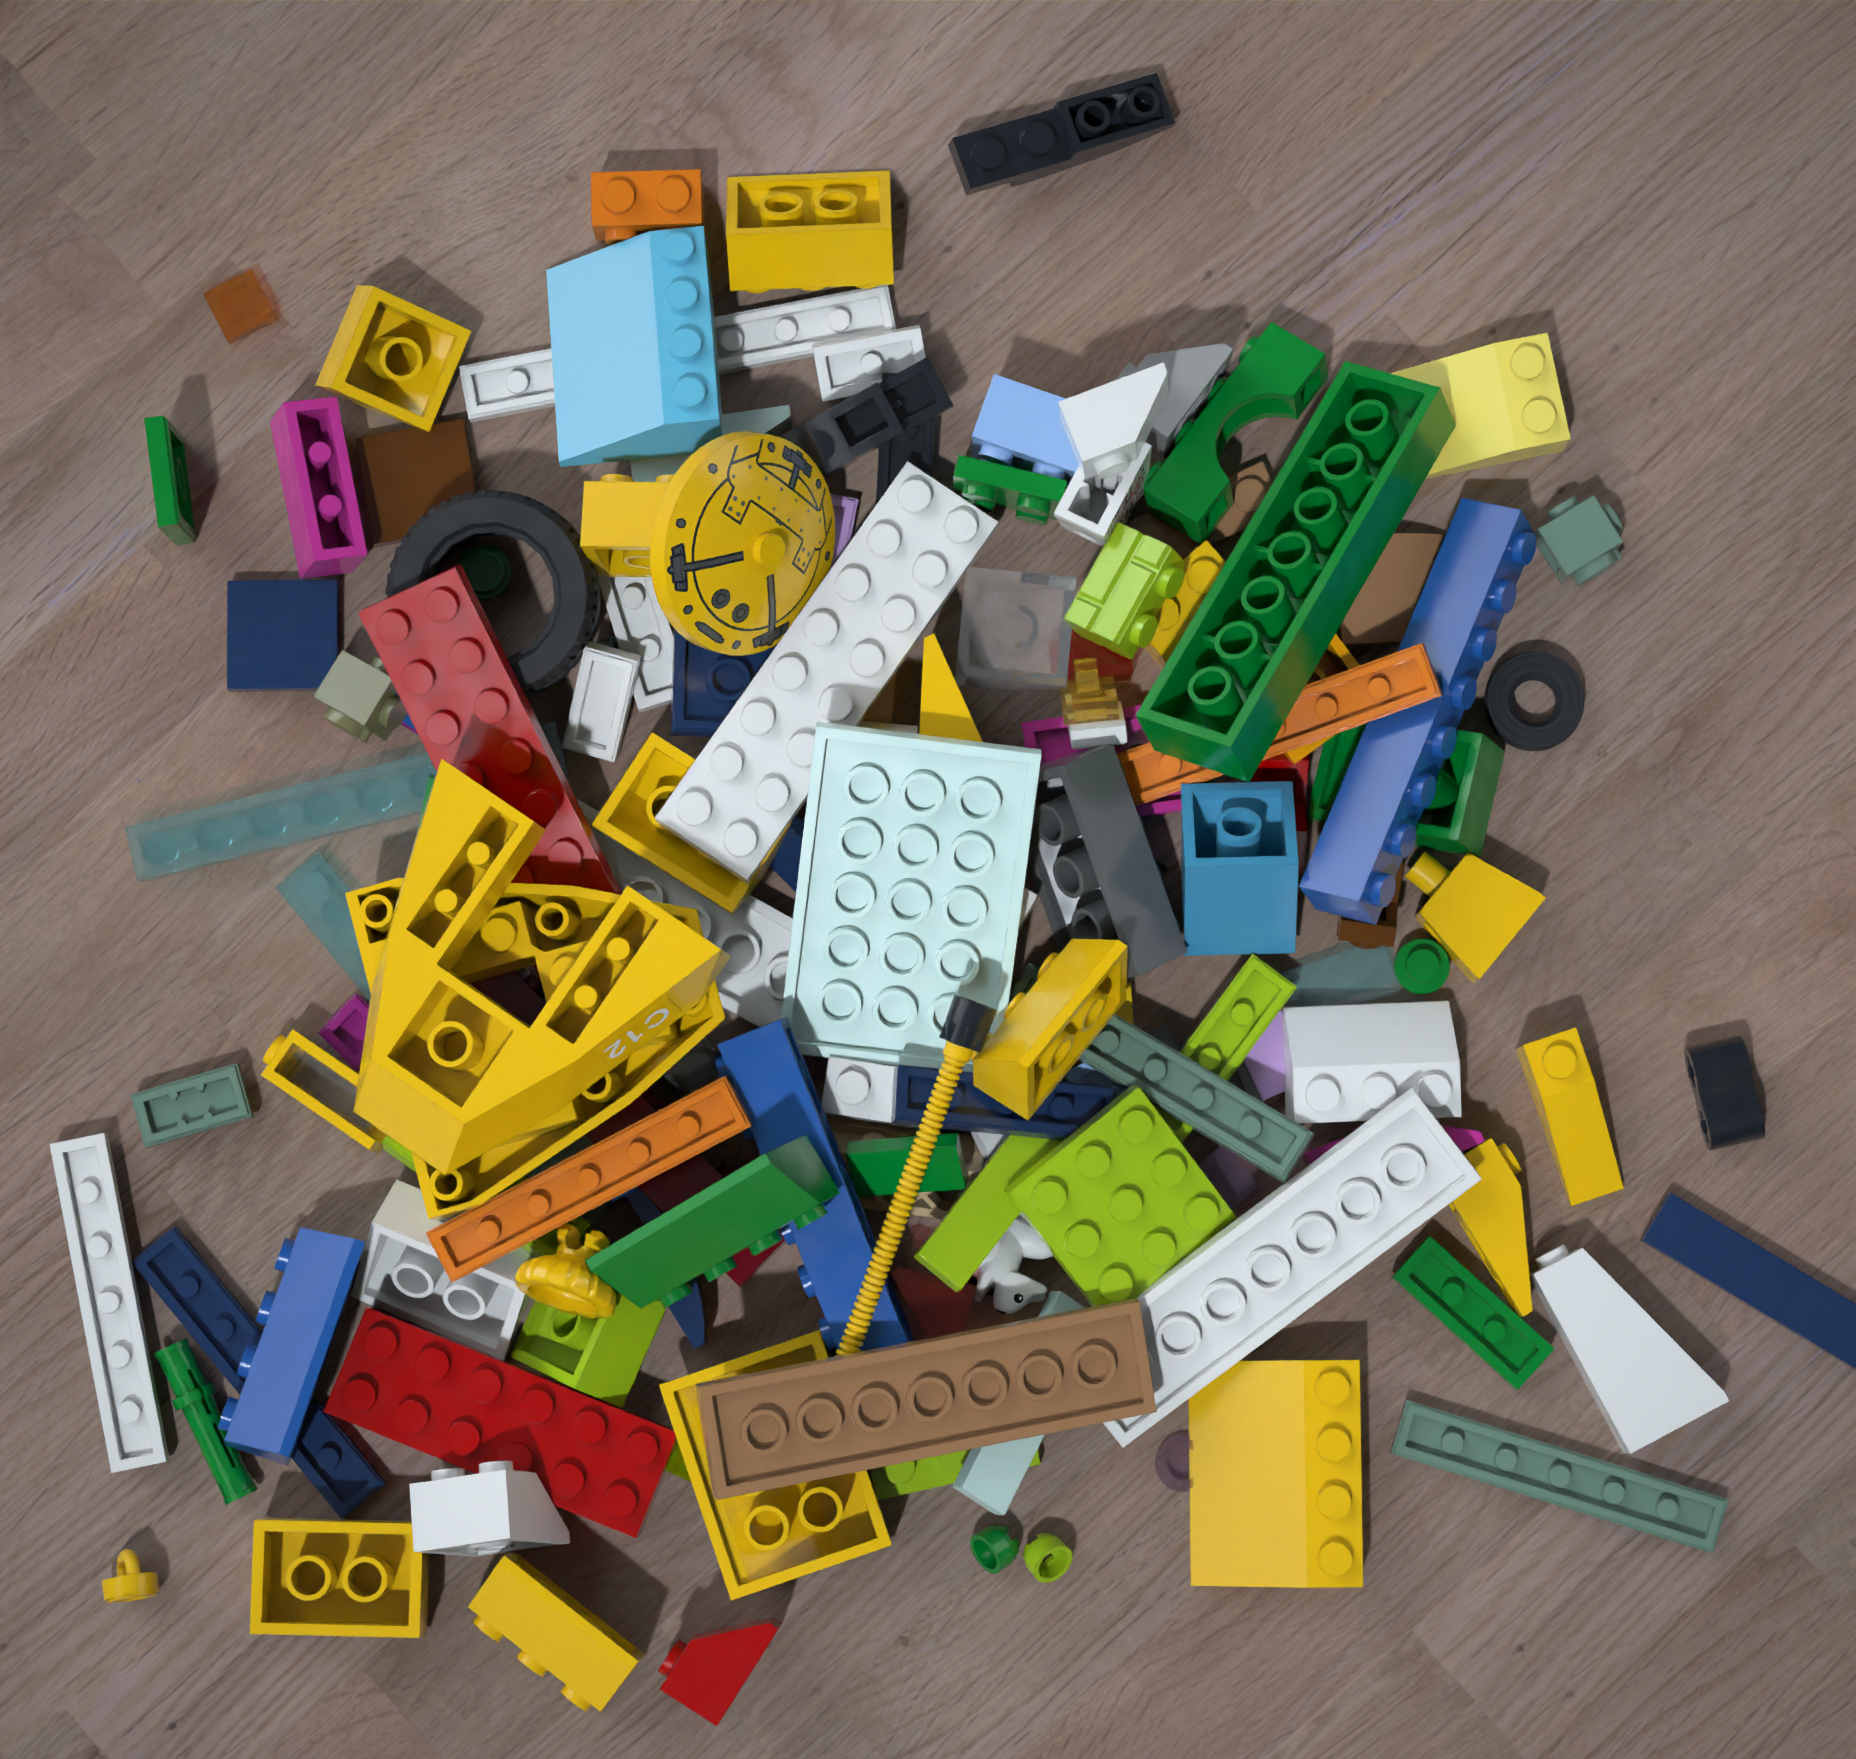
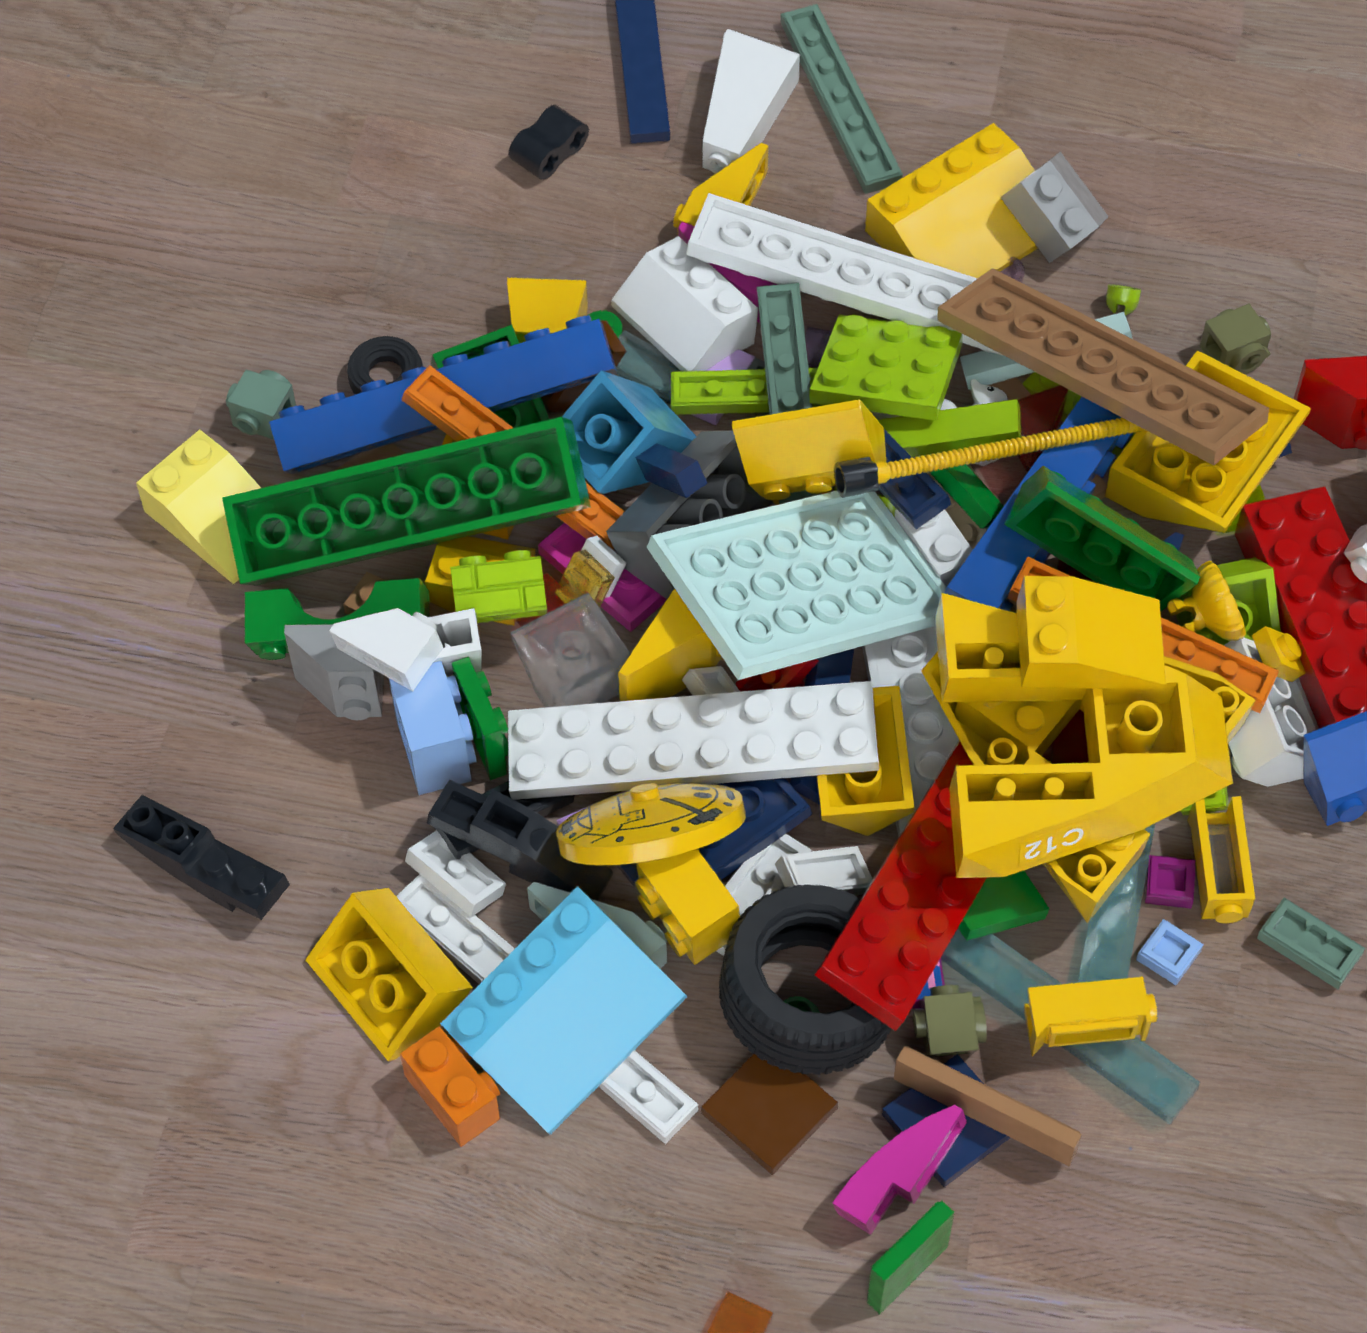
camera: 130 degrees left, 25 degrees down
(256, 661) = (987, 1105): none -> medium nougat tile
(260, 538) = (899, 1168): none -> dark pink slope
(266, 820) = (1088, 1012): none -> yellow window
(289, 971) = (1169, 952): none -> light blue tile
(318, 487) = (827, 1155): dark pink brick -> none
(393, 357) = (696, 1179): yellow slope -> none
(492, 1326) = (1279, 652): none -> yellow plate
(557, 1048) = (1088, 636): none -> yellow slope
(895, 1629) = (1237, 338): none -> olive brick
(994, 1548) = (1144, 324): green hinge -> none
(1130, 855) = (671, 470): none -> dark blue piece
(1206, 1577) = (1055, 207): none -> light grey slope
(1472, 1313) = (787, 174): green plate -> none
(1571, 1115) = (621, 209): yellow slope -> none

